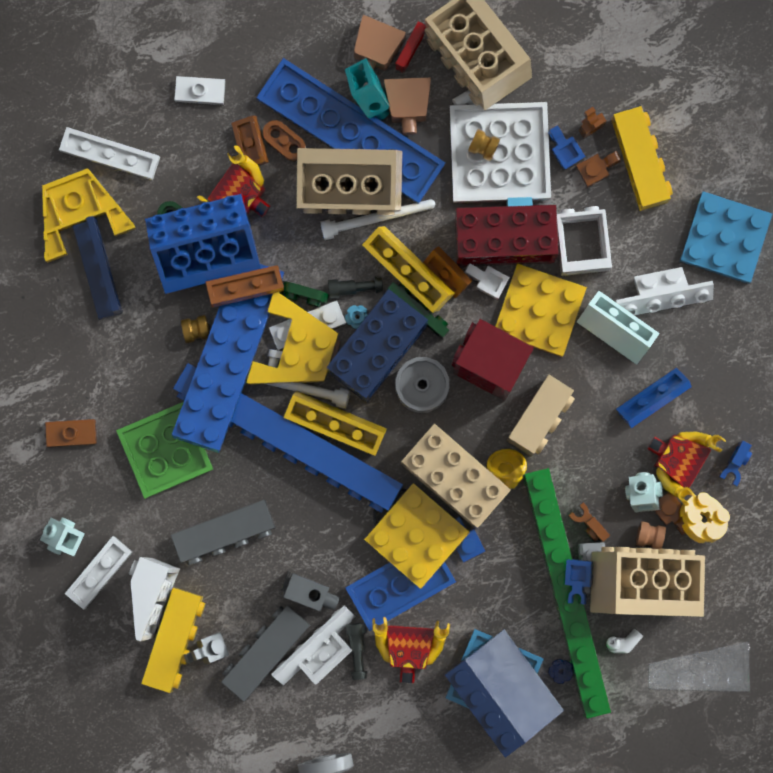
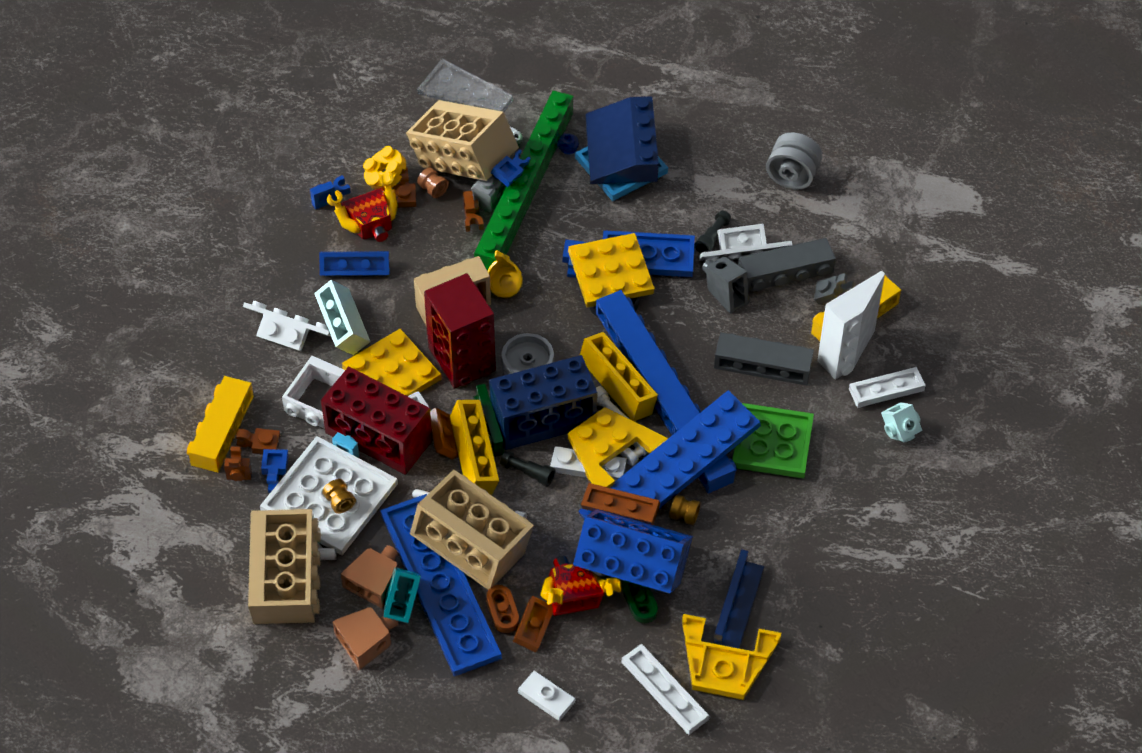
camera: 150 degrees left, 30 degrees down
(71, 433) = (845, 498): dark orange plate -> none
(314, 297) = (571, 482): dark green plate -> none
(356, 310) = (542, 452): medium azure plate -> none
(409, 646) = (668, 209): torso -> none
(410, 47) = (324, 620): red tile -> none
(455, 476) = (551, 285): tan brick -> none
(644, 492) = (414, 207): light aqua brick -> none
(726, 237) = (204, 338): dark azure plate -> none

